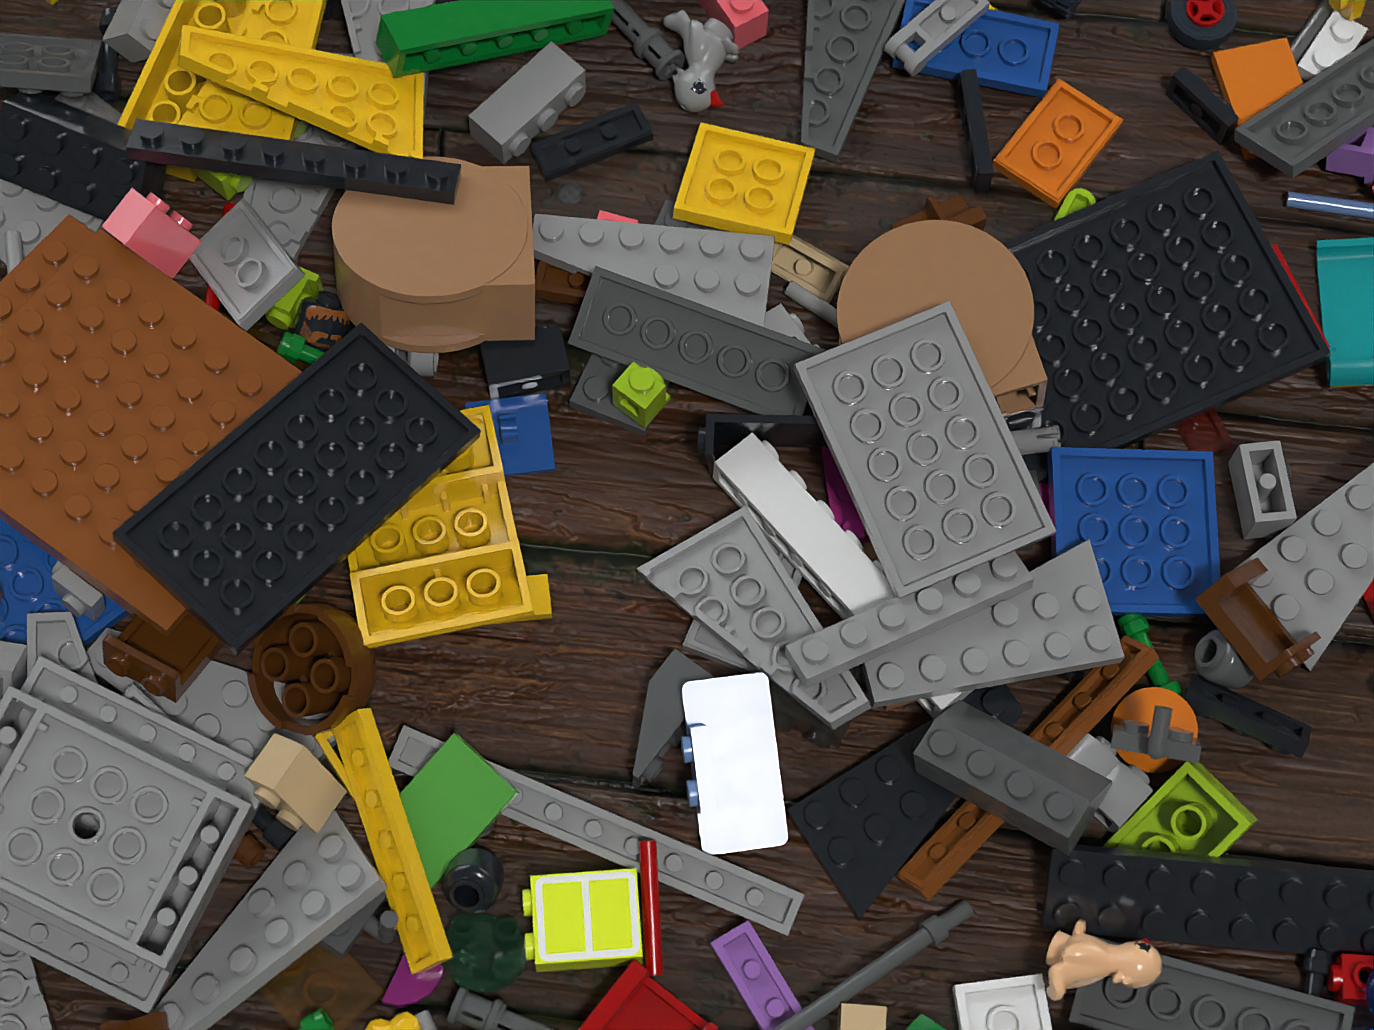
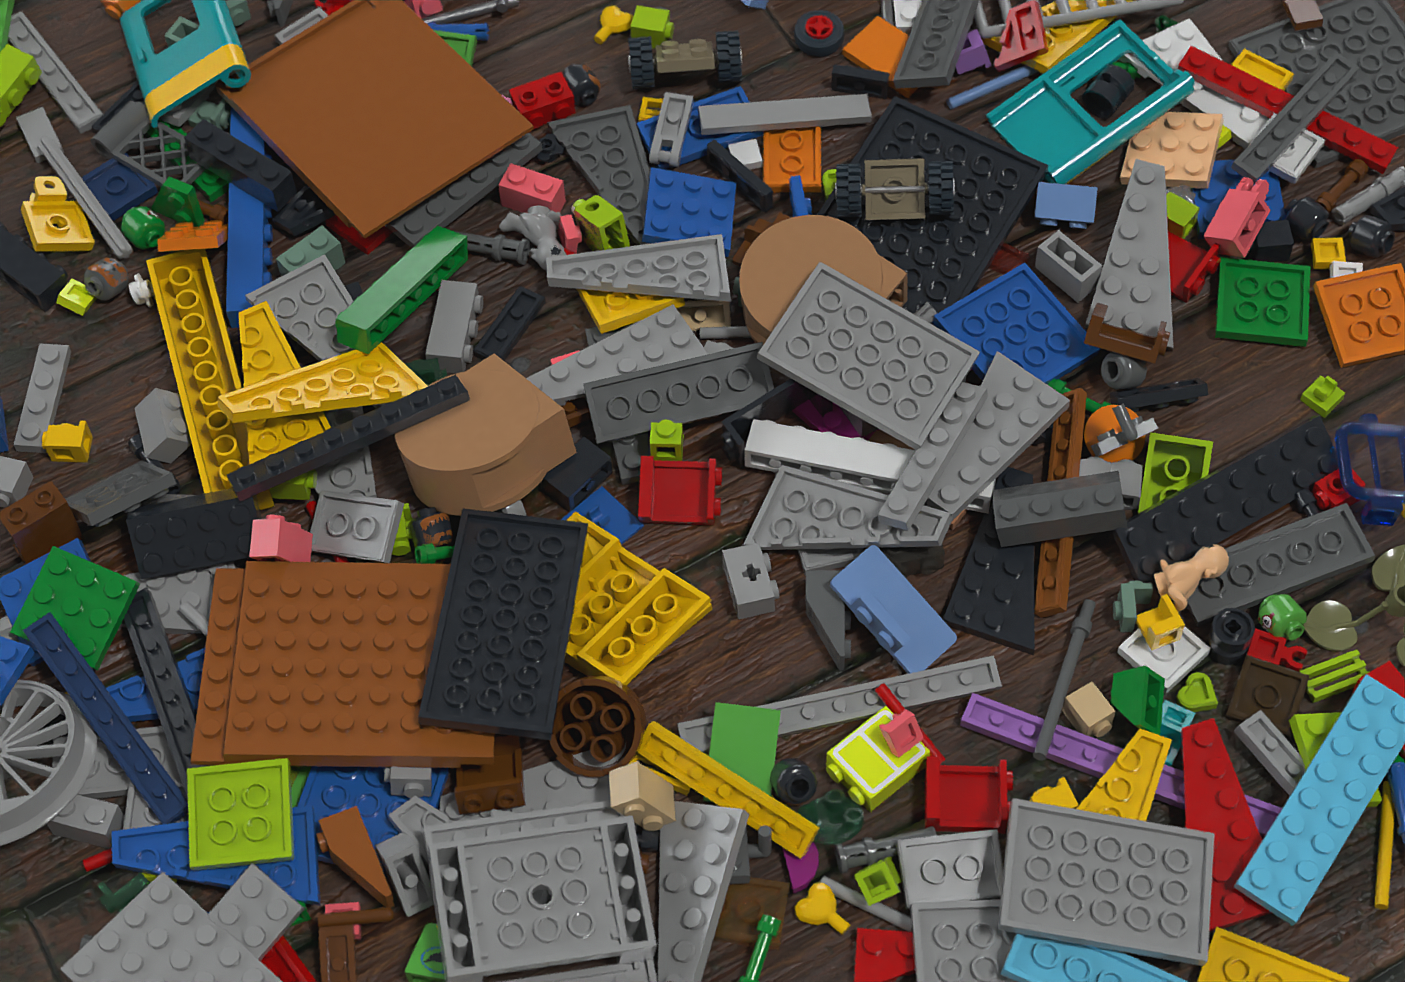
camera: 30 degrees left, 10 degrees down
(456, 136) = (427, 370): none -> clear green bracket
(612, 591) = (748, 596): none -> light grey brick
(614, 458) = (679, 491): none -> red panel
(621, 915) = (902, 733): none -> coral tile
(734, 77) = (569, 233): none -> coral plate
(771, 78) = (600, 224): none -> lime torso
(798, 191) = (669, 268): none -> light grey wing
(884, 137) = (688, 207): none -> blue plate
(998, 944) = (1125, 607): none -> sand green bracket
(1004, 109) = (747, 153): none -> white tile
(1015, 210) = (799, 204): none -> blue plate
(1018, 995) = (1161, 624): none -> yellow panel
(1081, 90) = (784, 114): none -> light grey tile
(1123, 265) = (895, 189): none -> plate
(1319, 412) = (1065, 204): none -> medium blue brick

